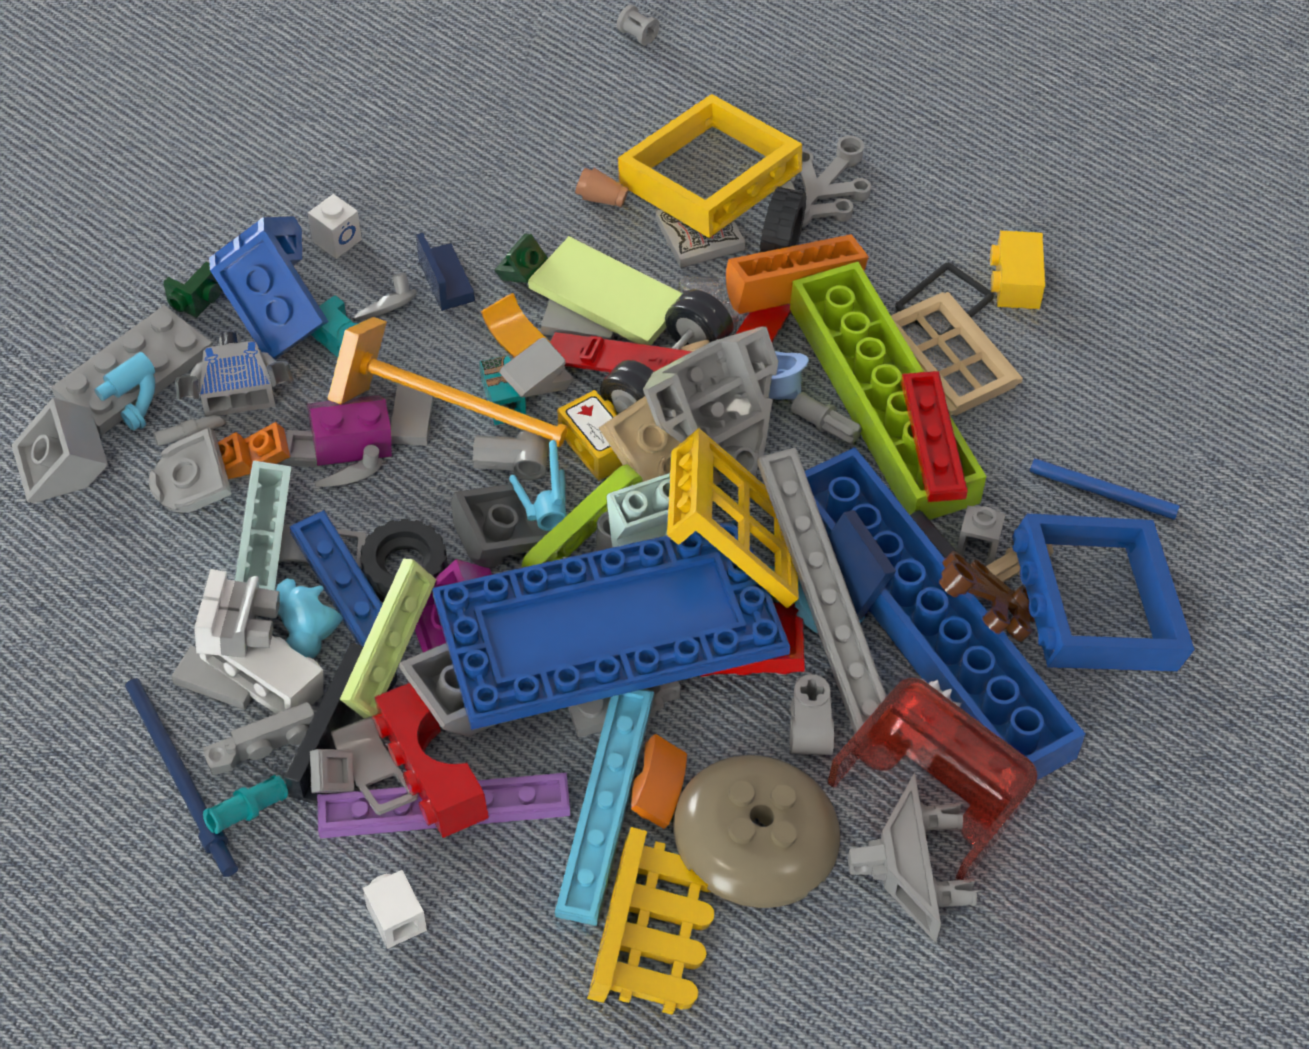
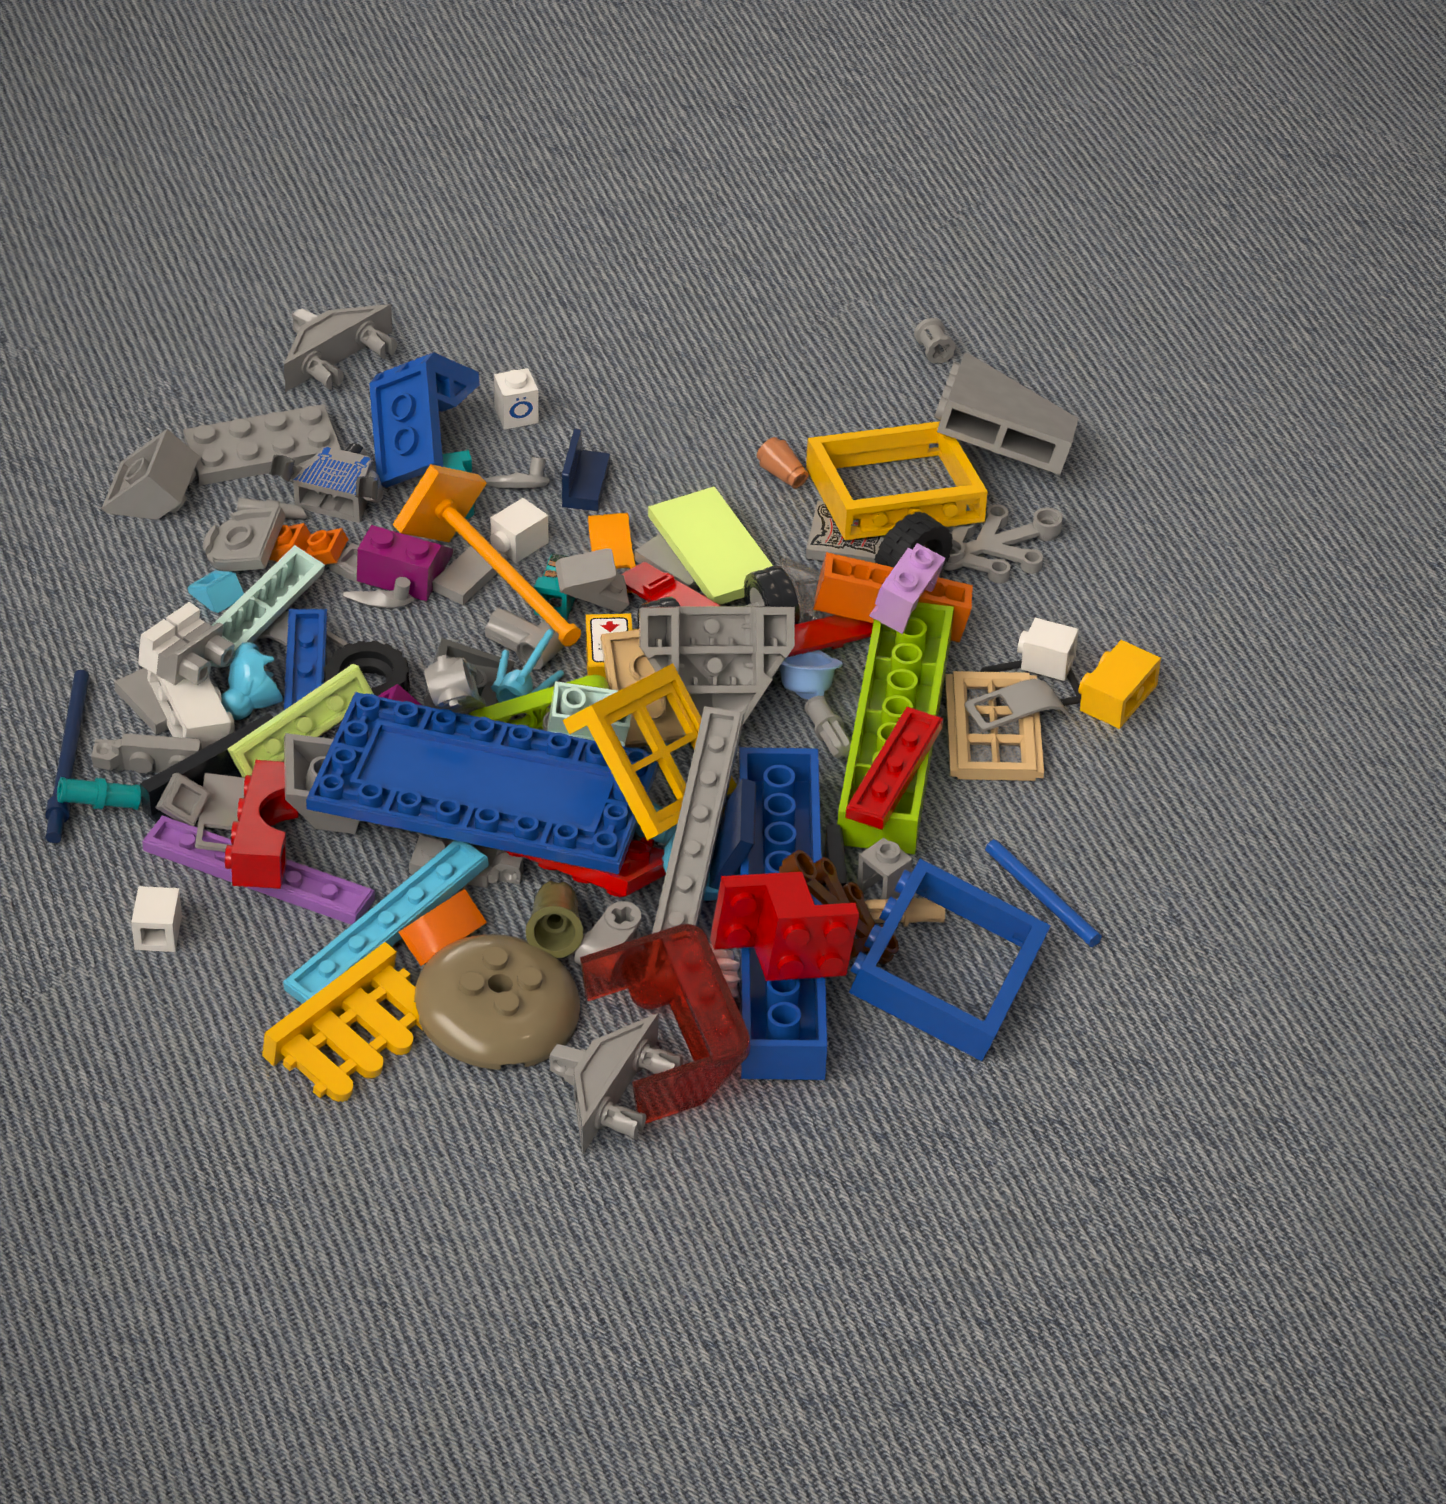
camera: 30 degrees right, 10 degrees down
(124, 378) = (243, 442): medium azure plant -> none
(126, 236) = (333, 337): none -> light grey connector
(195, 294) = (350, 405): dark green bracket -> none
(196, 534) = (217, 590): none -> medium azure slope
(430, 350) = (519, 530): none -> white brick
(521, 260) = (655, 486): dark green bracket -> none
(525, 539) = (453, 685): none -> light grey piece
(753, 70) = (1004, 416): none -> light grey slope
(755, 723) = (555, 920): none -> olive plant
(823, 263) = (901, 590): none -> lavender window
(945, 263) = (1048, 648): none -> white brick
(961, 317) = (1021, 698): none -> light grey piece
(989, 640) = (784, 926): none -> red bracket

